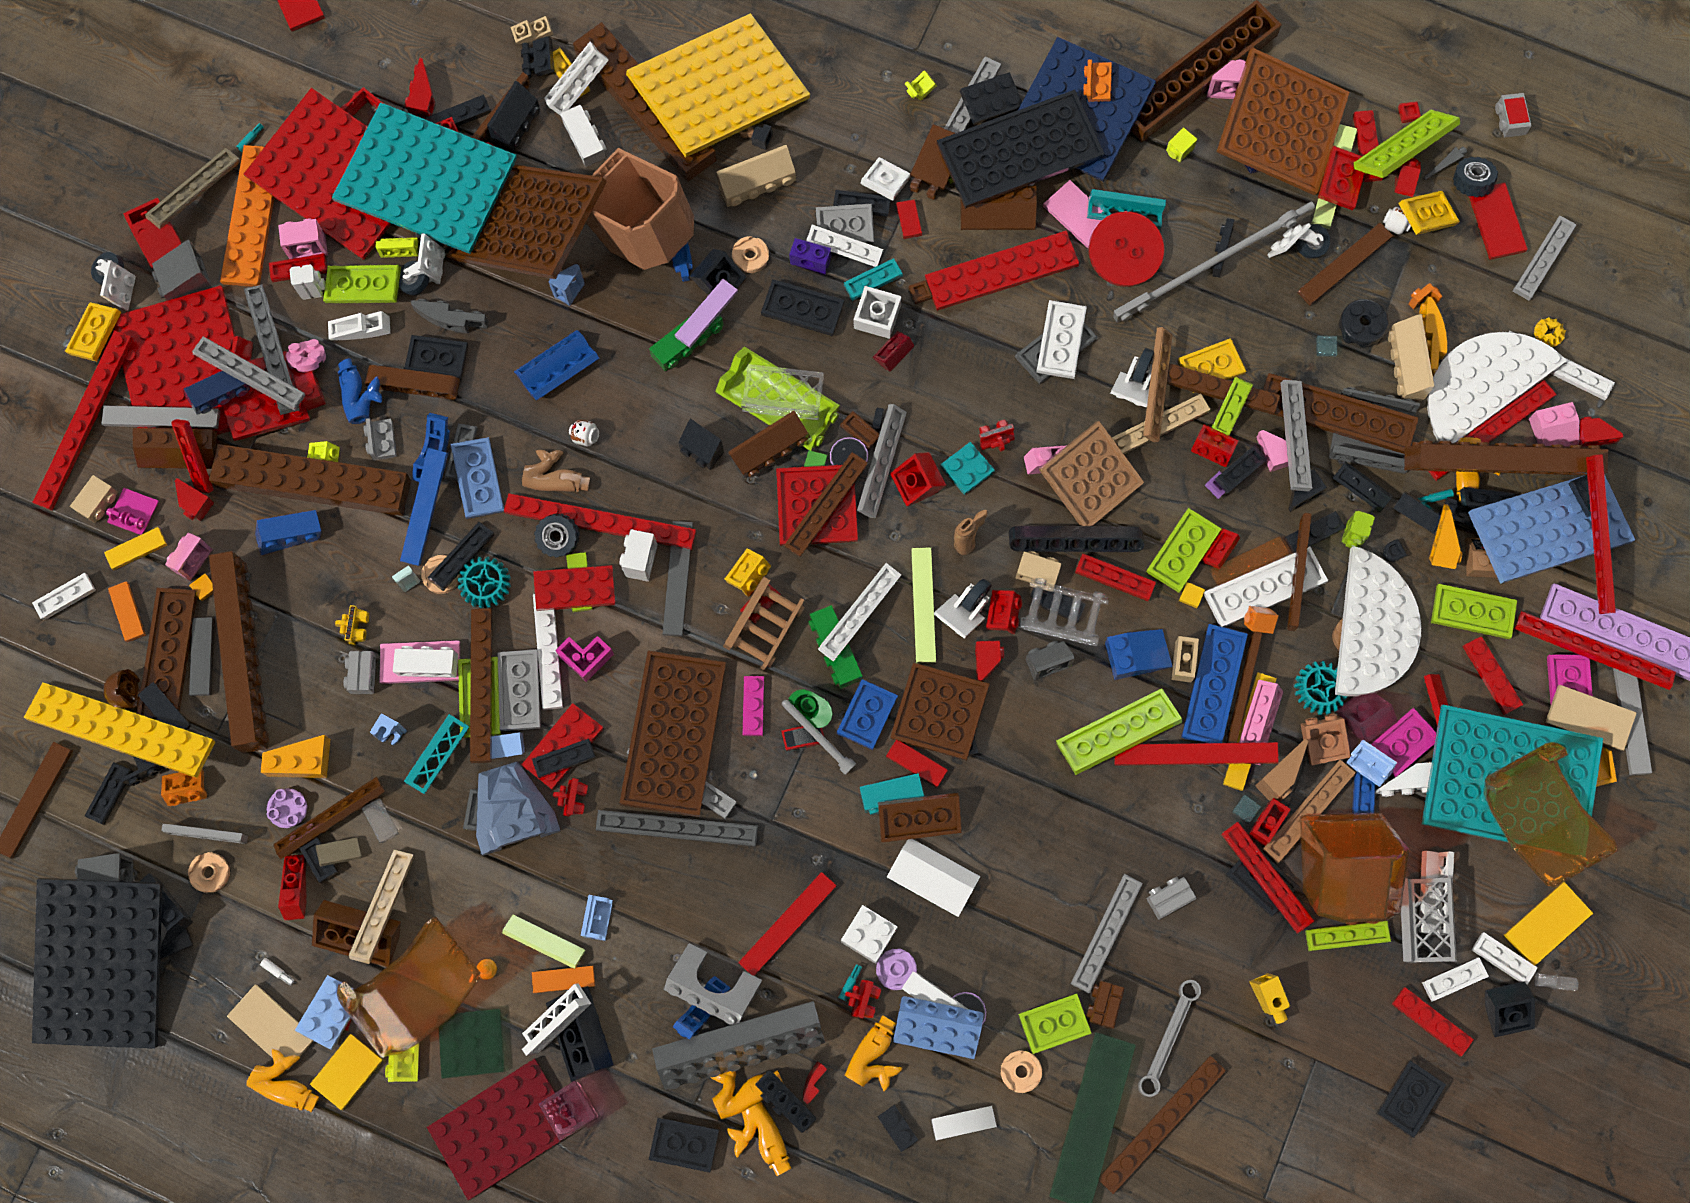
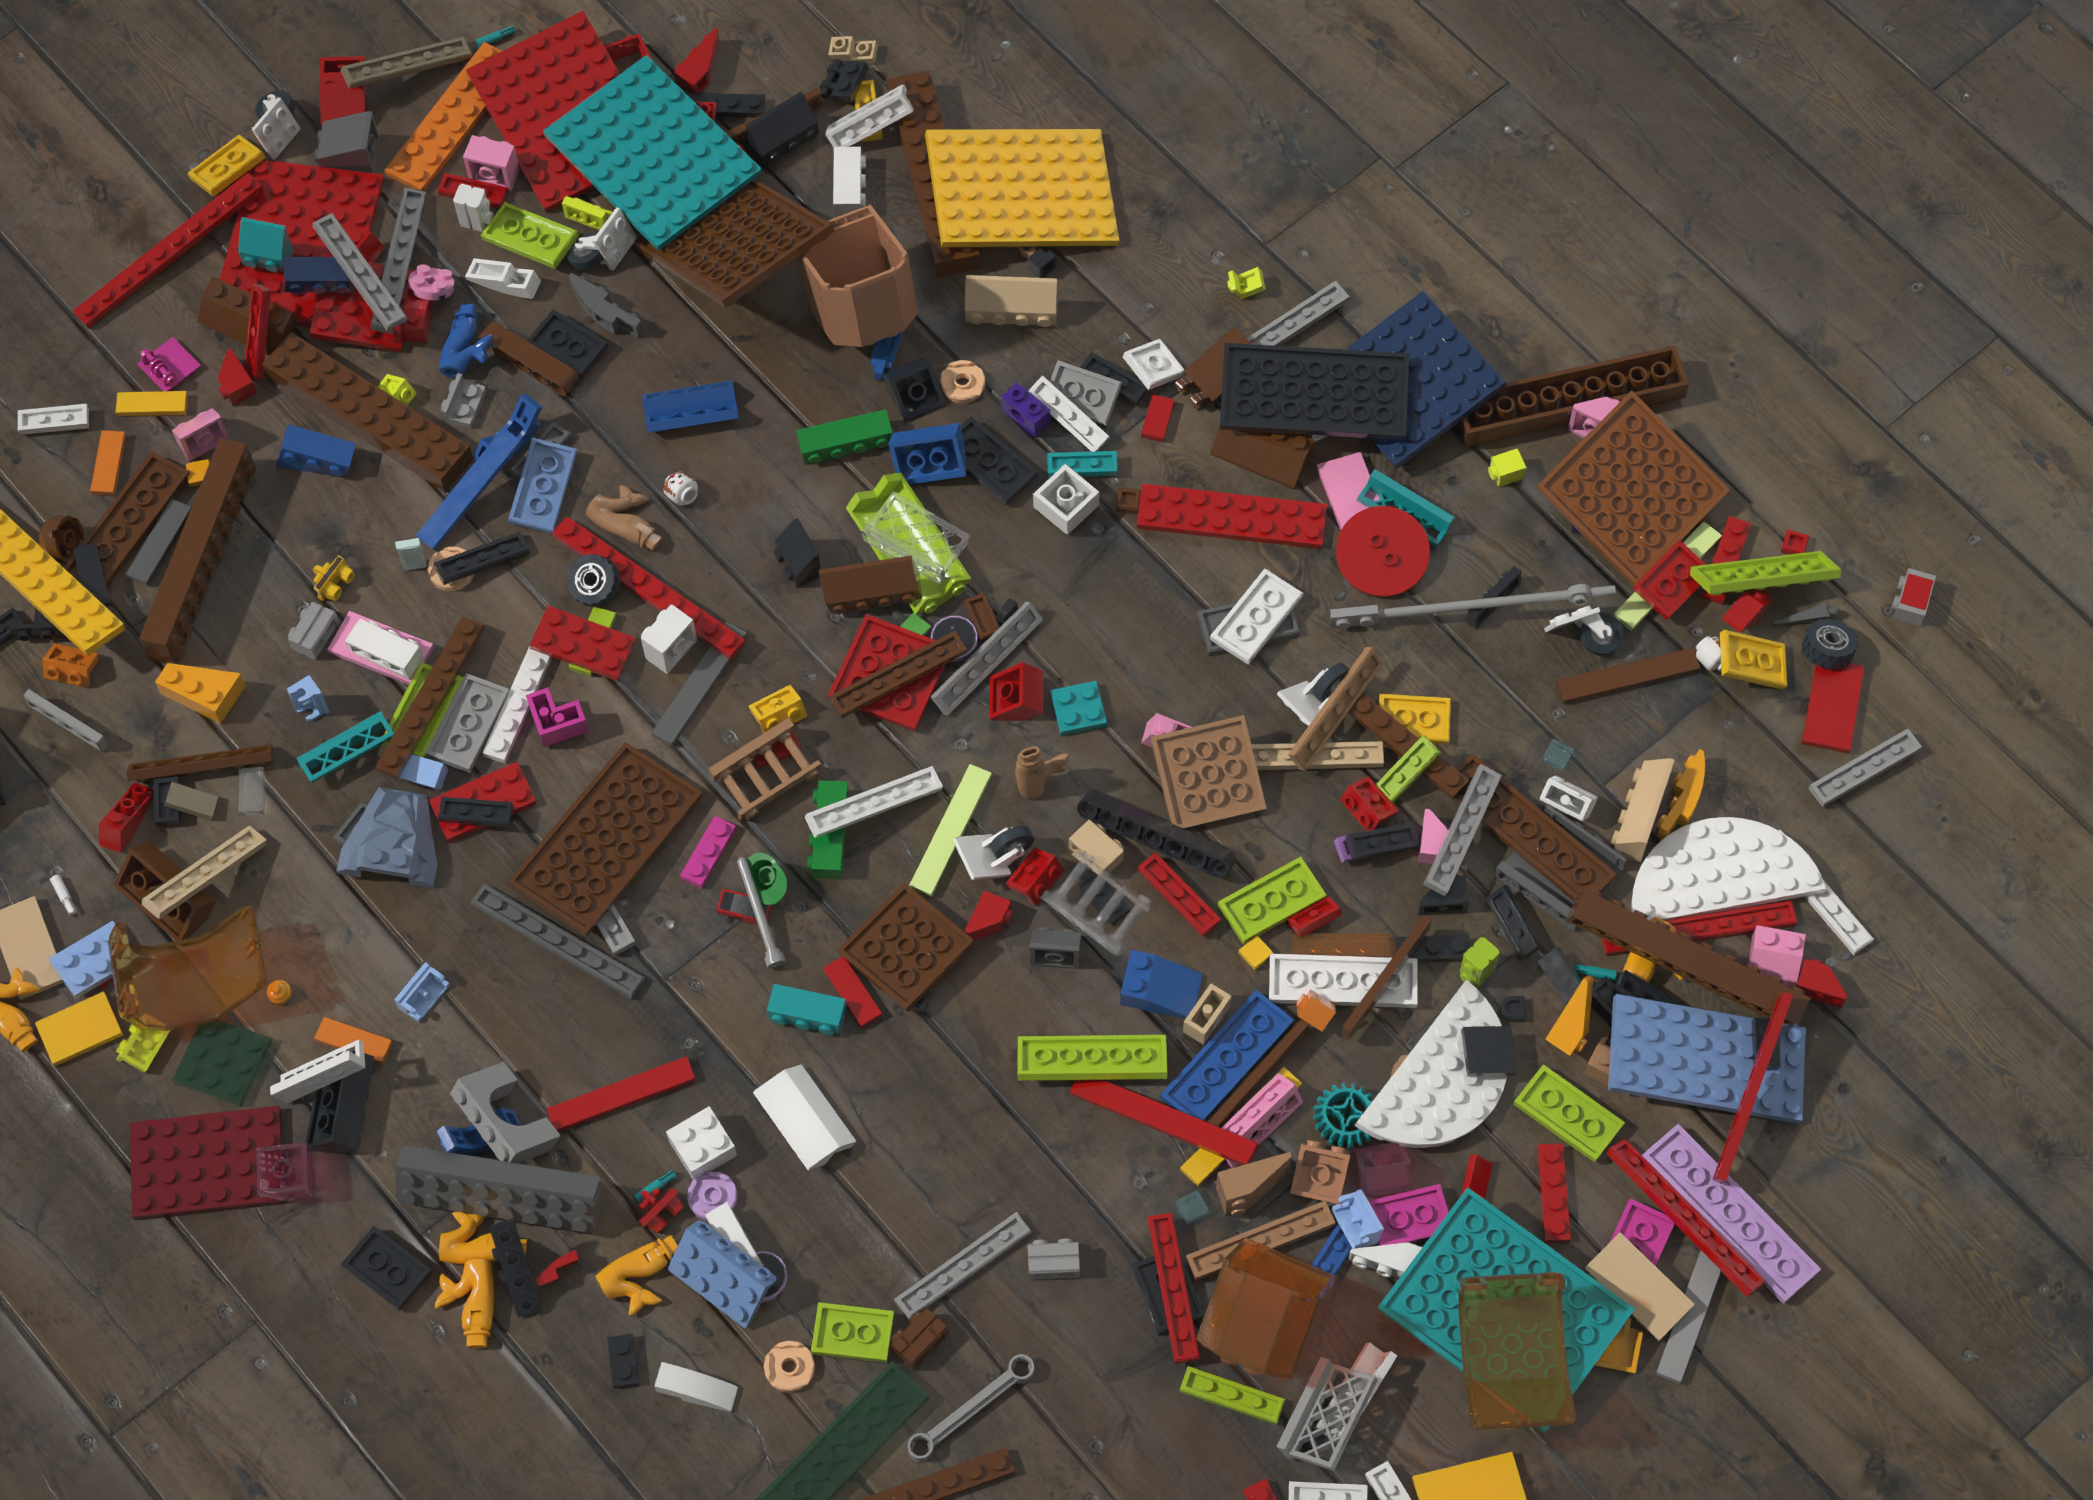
camera: 25 degrees right, 10 degrees down
(94, 499) = (136, 334): tan brick -> none
(157, 417) = (244, 277): light grey tile -> none
(160, 384) = (264, 244): none -> teal slope
(217, 880) = (48, 775): light nougat tile -> none
(286, 808) = (163, 733): lavender dish -> none
(469, 579) = (490, 588): teal gear -> none
(543, 941) = (353, 991): yellowish green tile -> none
(564, 288) = (738, 318): medium blue tile -> none
(574, 788) = (458, 867): red hips -> none
(706, 313) = (877, 419): lavender tile -> none
(758, 322) = (929, 453): none -> blue slope
(867, 714) = (825, 915): blue plate -> none
(894, 351) = (1065, 550): dark red slope -> none
(919, 817) = (822, 1046): reddish brown plate -> none
(991, 98) = (1317, 326): black plate -> none
(997, 437) = (1128, 687): red hips -> none
(1098, 81) = (1439, 355): orange bracket -> none
(1268, 989) = (1106, 1404): yellow torso -> none
(1269, 822) = (1206, 1228): red brick -> none
(1354, 376) = (1568, 798): none -> white brick
(1363, 335) = (1610, 761): black plate -> none
(1398, 592) = (1489, 1051): none -> black tile
(1419, 295) = (1692, 745): orange bracket -> none
(1549, 339) = (1821, 858): yellow gear -> none

